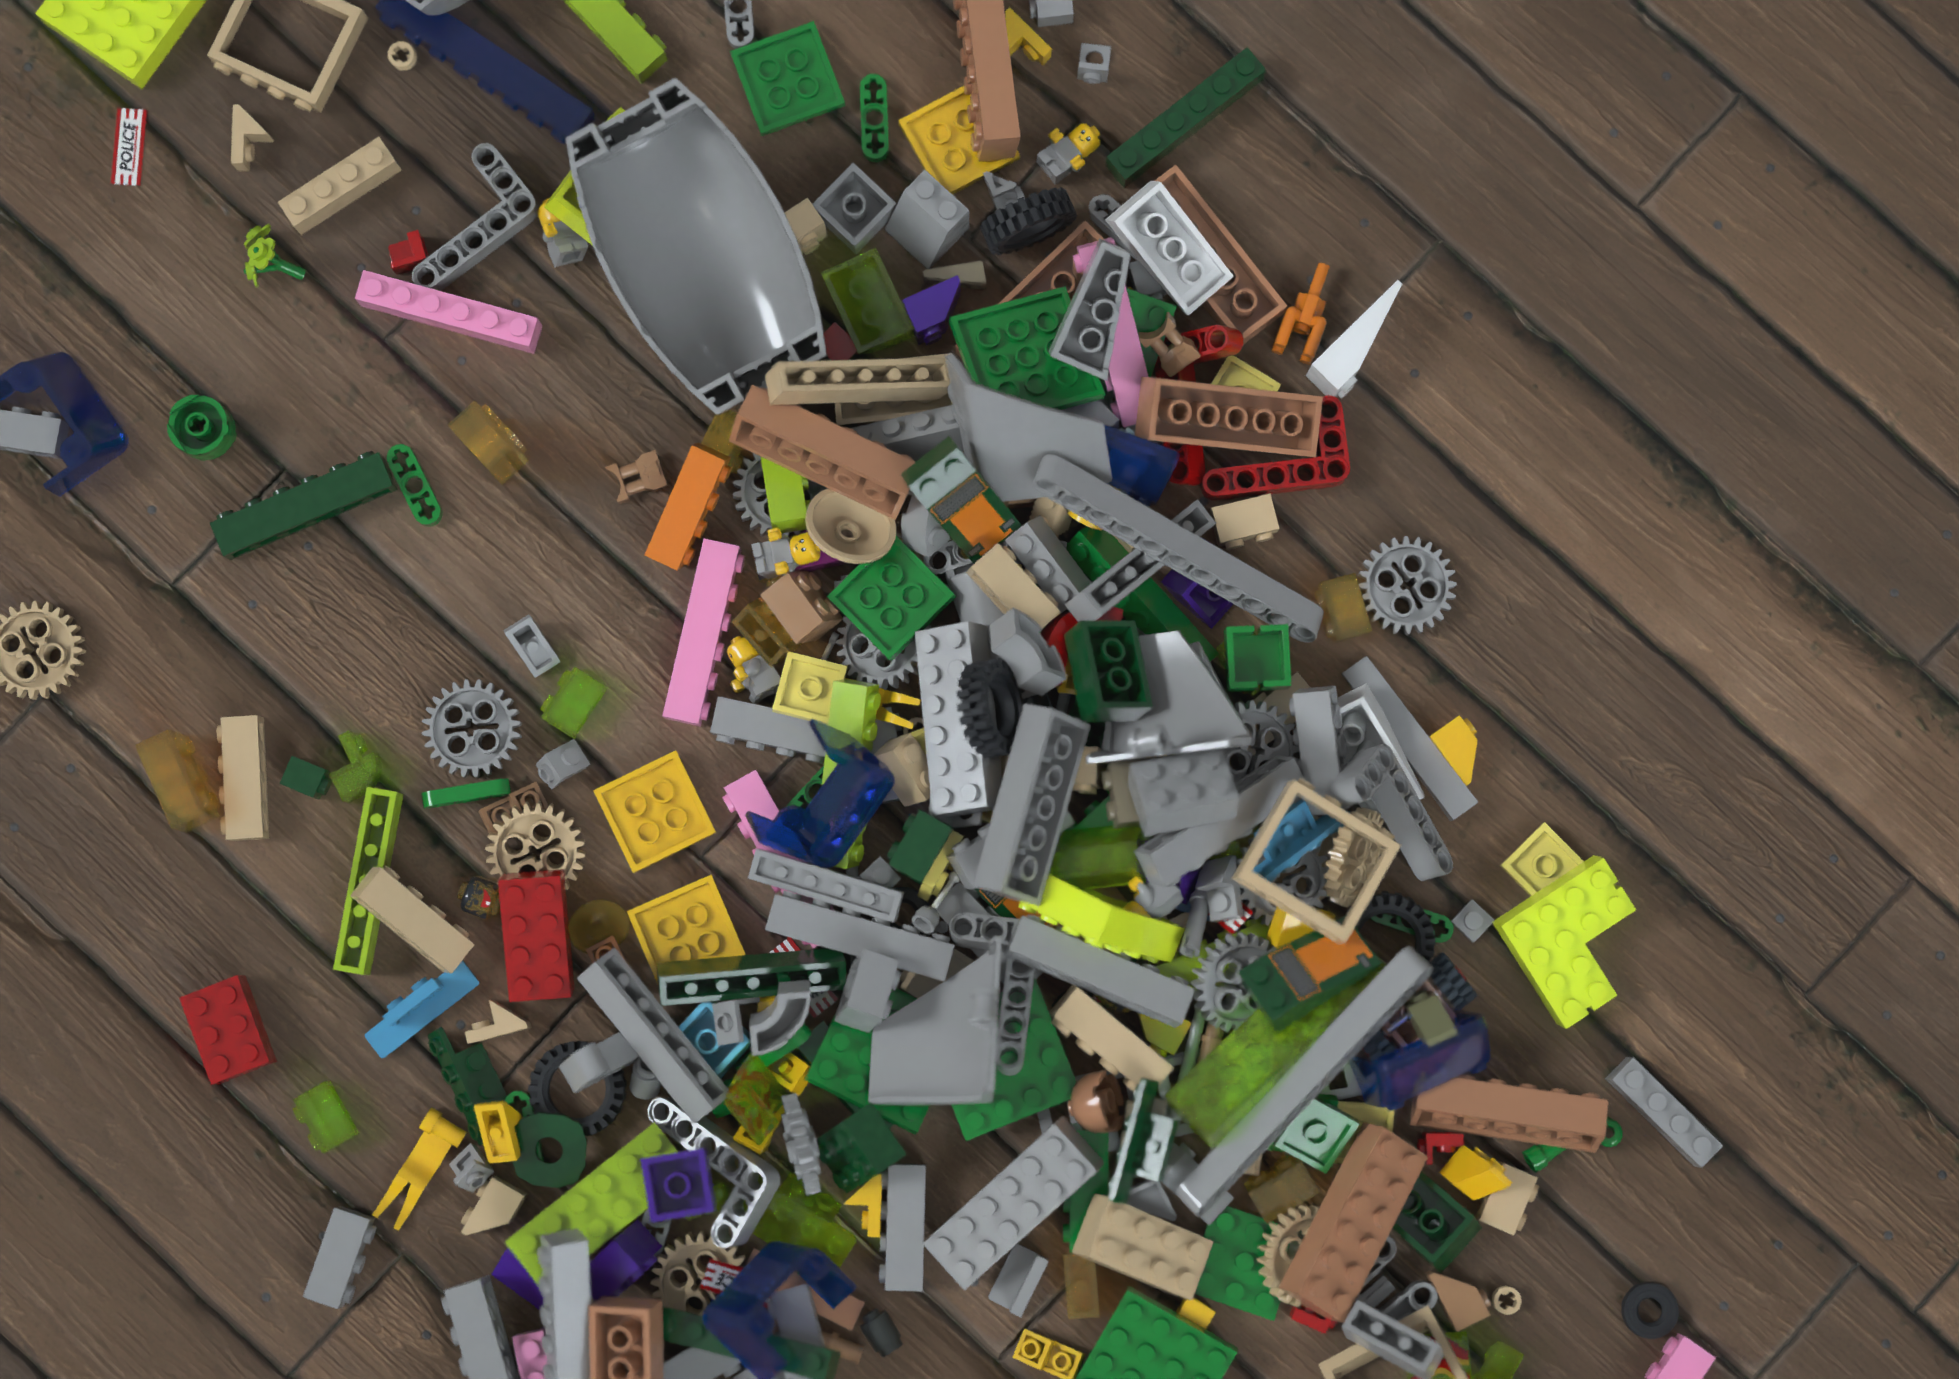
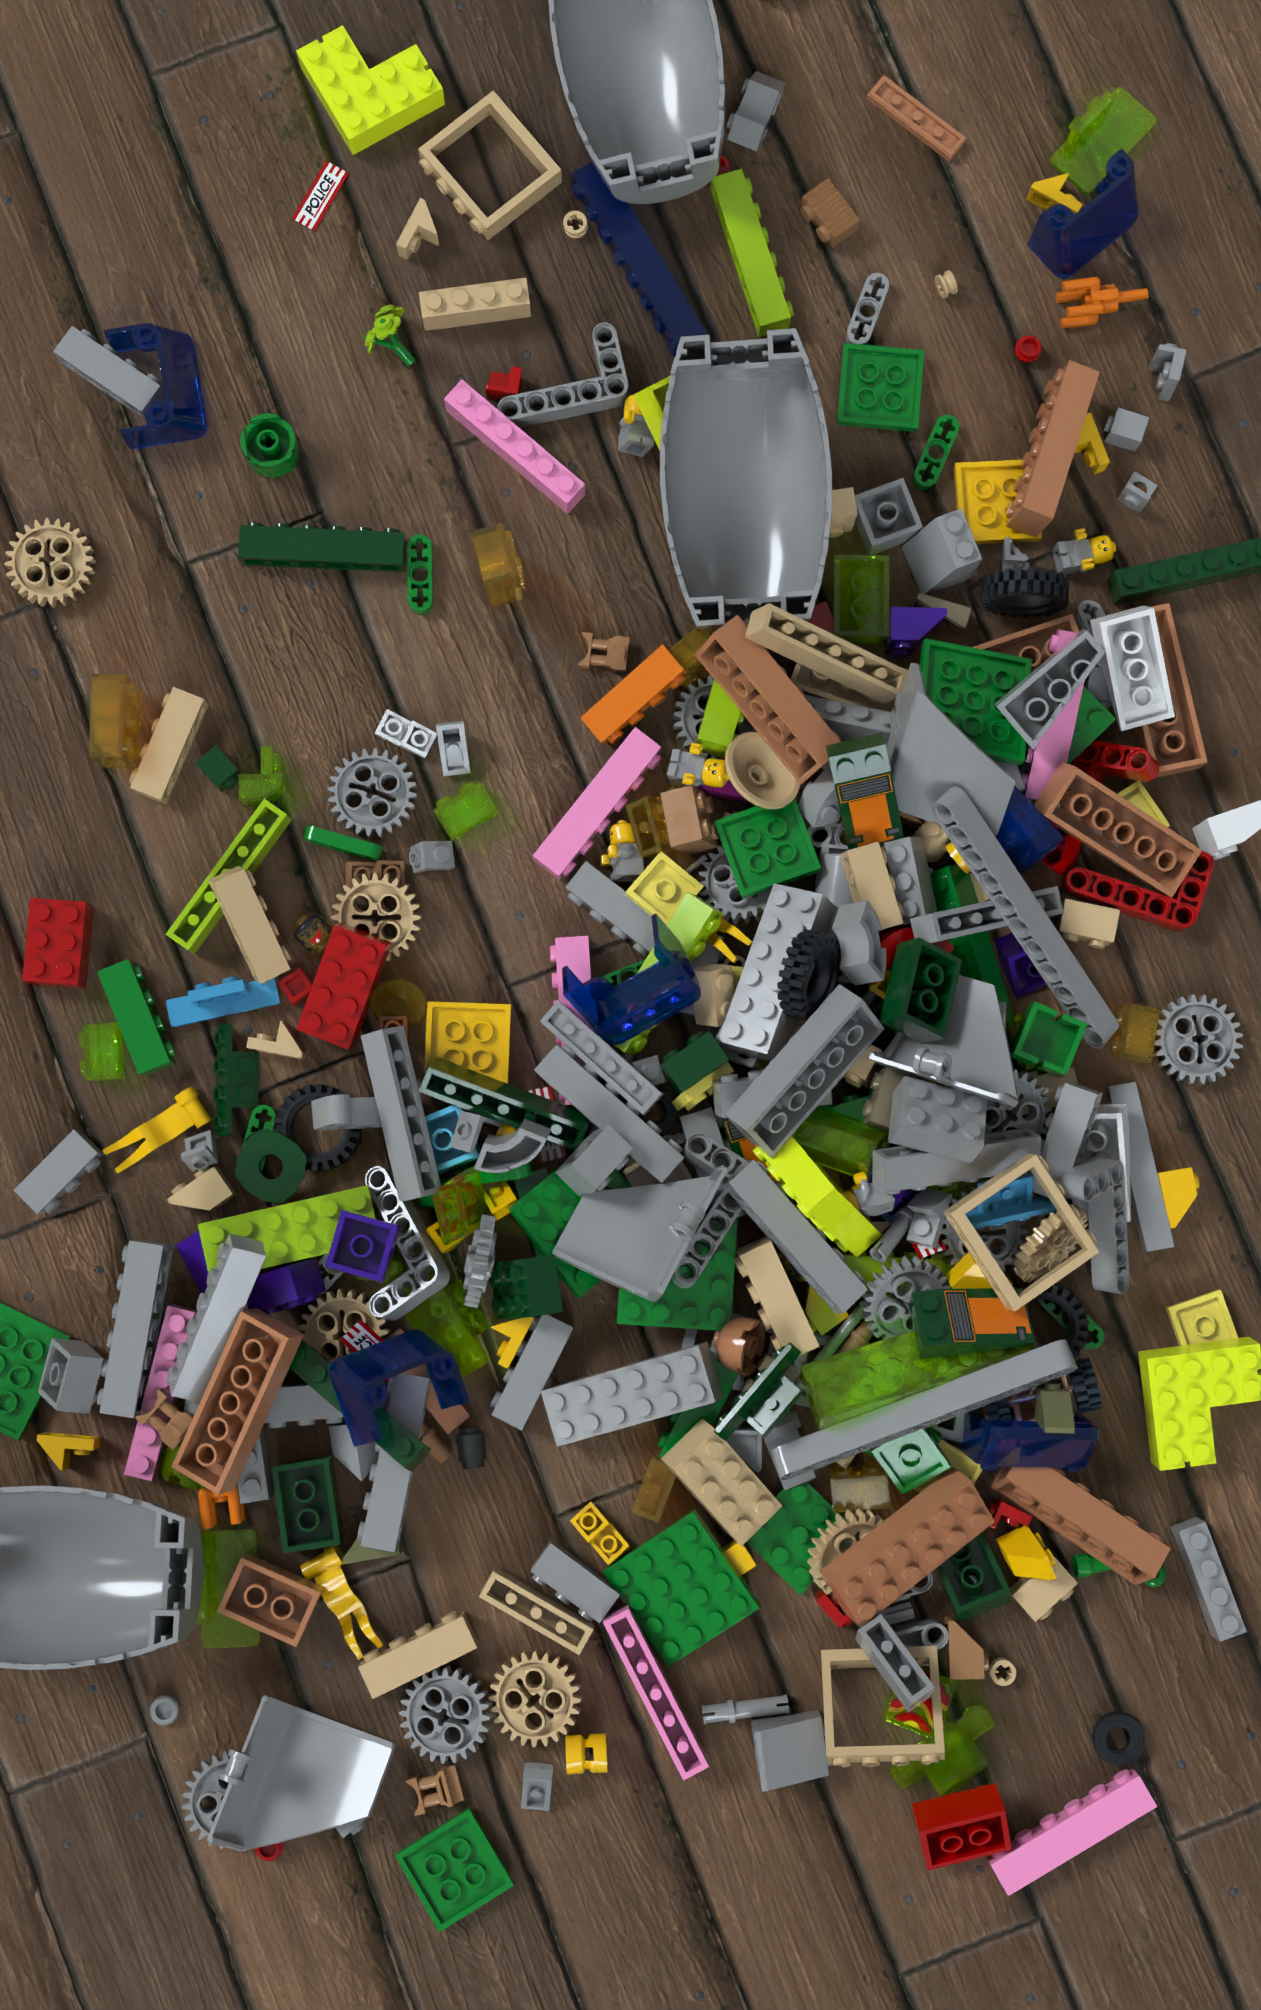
camera: 20 degrees right, 0 degrees up
(342, 1065) = (136, 1017): none -> green brick
(476, 653) = (405, 734): none -> white slope
(487, 958) = (296, 986): none -> red tile
(498, 1131) = (236, 1130): yellow slope -> none
(643, 1081) = (374, 1147): light grey brick -> none
(654, 811) = (489, 931): yellow plate -> none
(928, 917) = (672, 1124): light grey hinge -> none
(1018, 1279) = (605, 1458): light grey panel -> none
(1175, 356) = (1100, 758): medium nougat piece -> none
(1305, 318) = (1215, 780): orange plant -> none
(1472, 921) = (1121, 1342): light grey plate -> none

